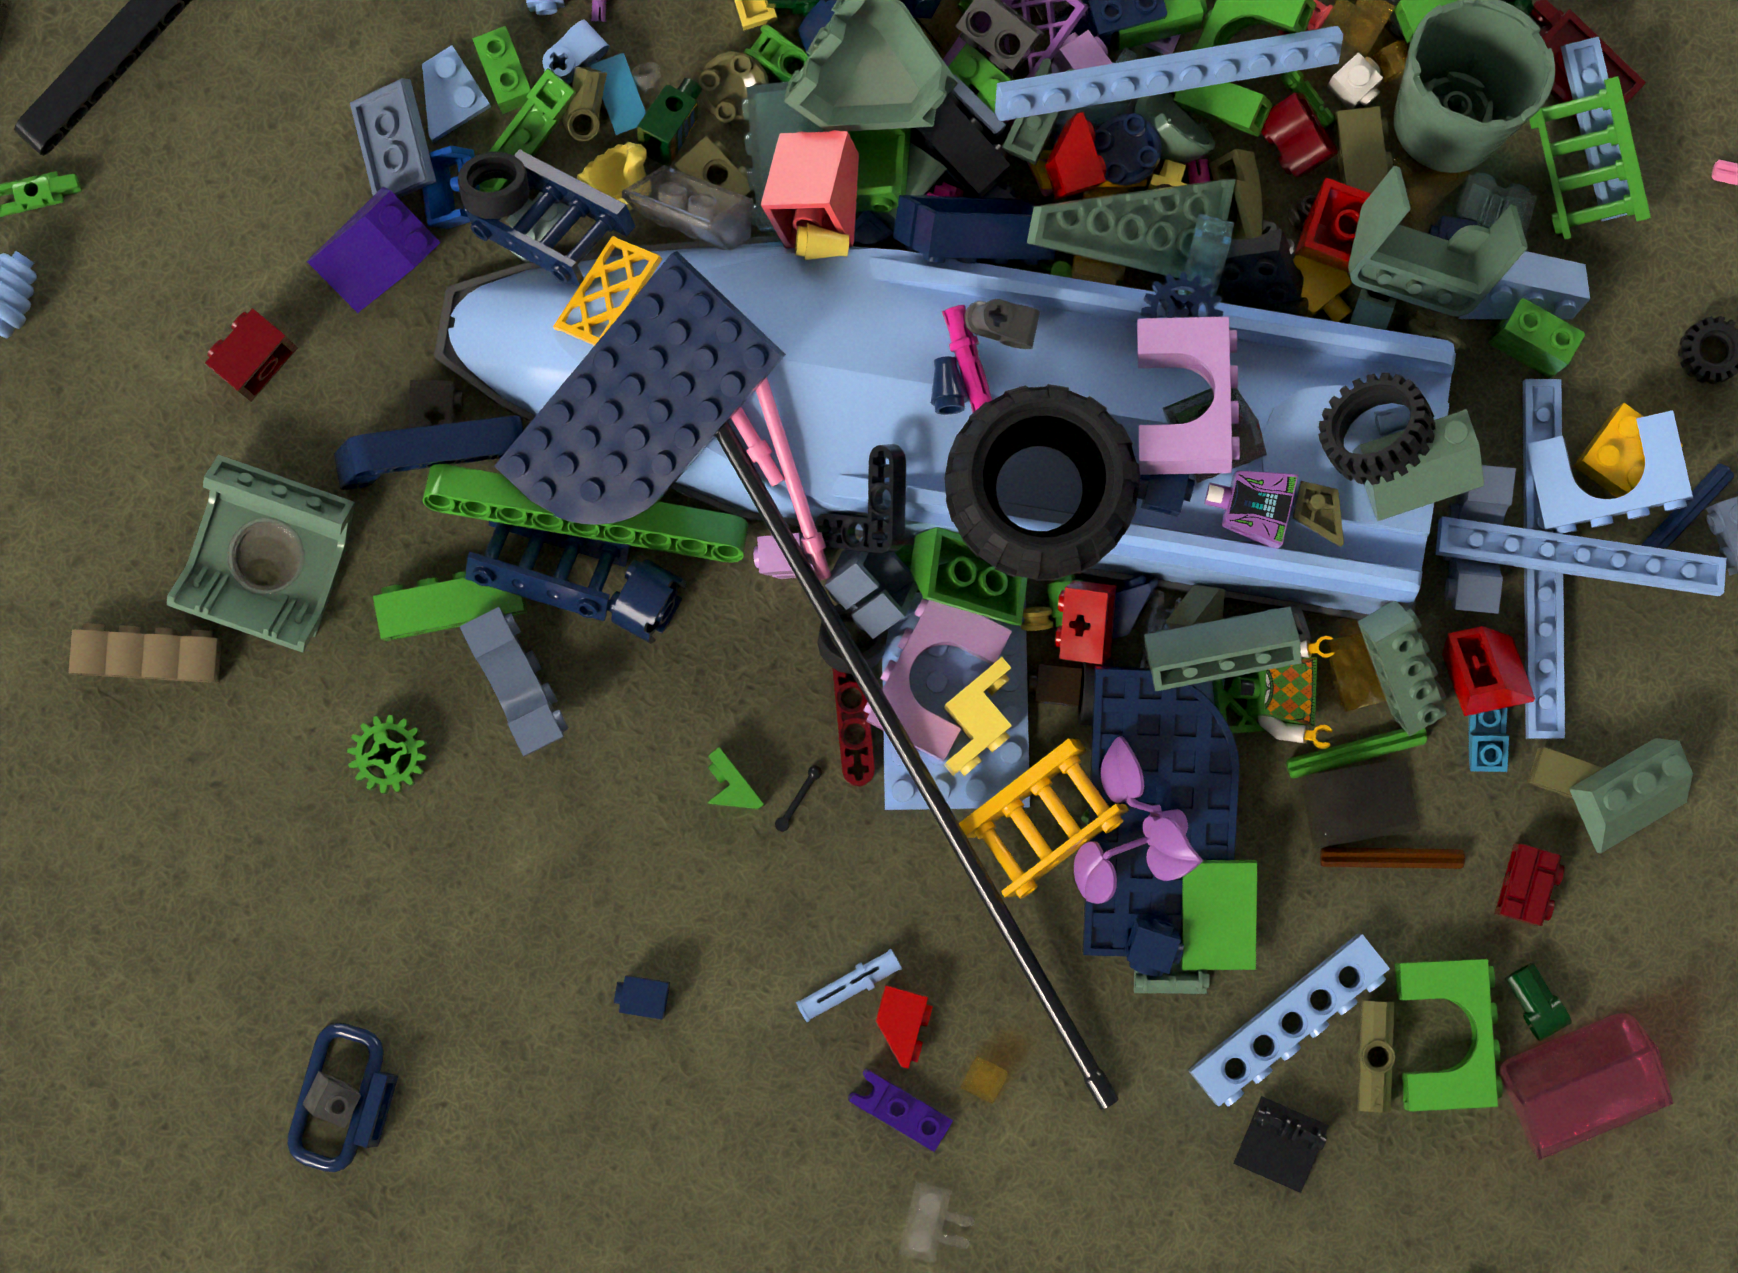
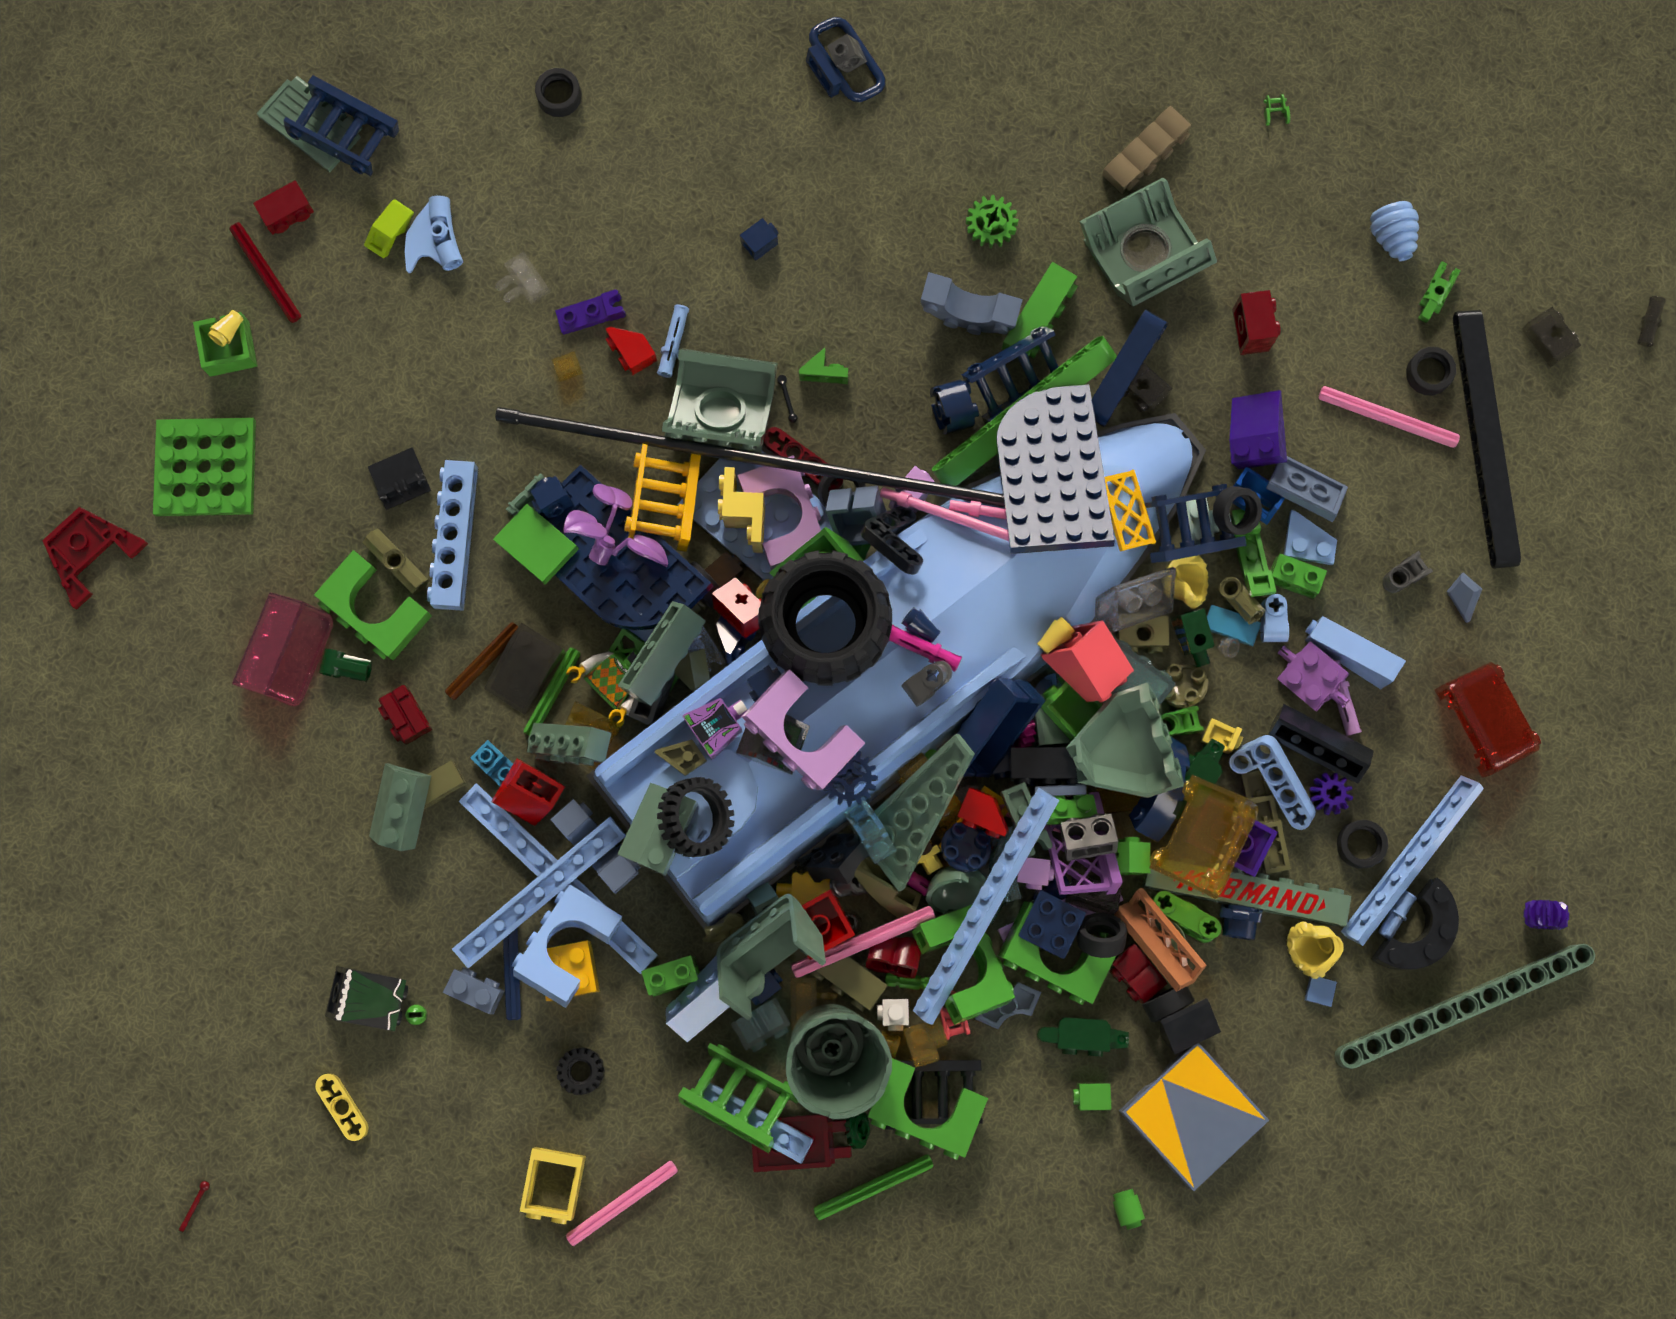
camera: 135 degrees right, 5 degrees down
(133, 96) = (1426, 388): none -> black tyre
(228, 126) = (1389, 417): none -> bright pink axle
(873, 862) = (721, 400): none -> sand green panel
(1292, 161) = (865, 940): none -> bright pink axle

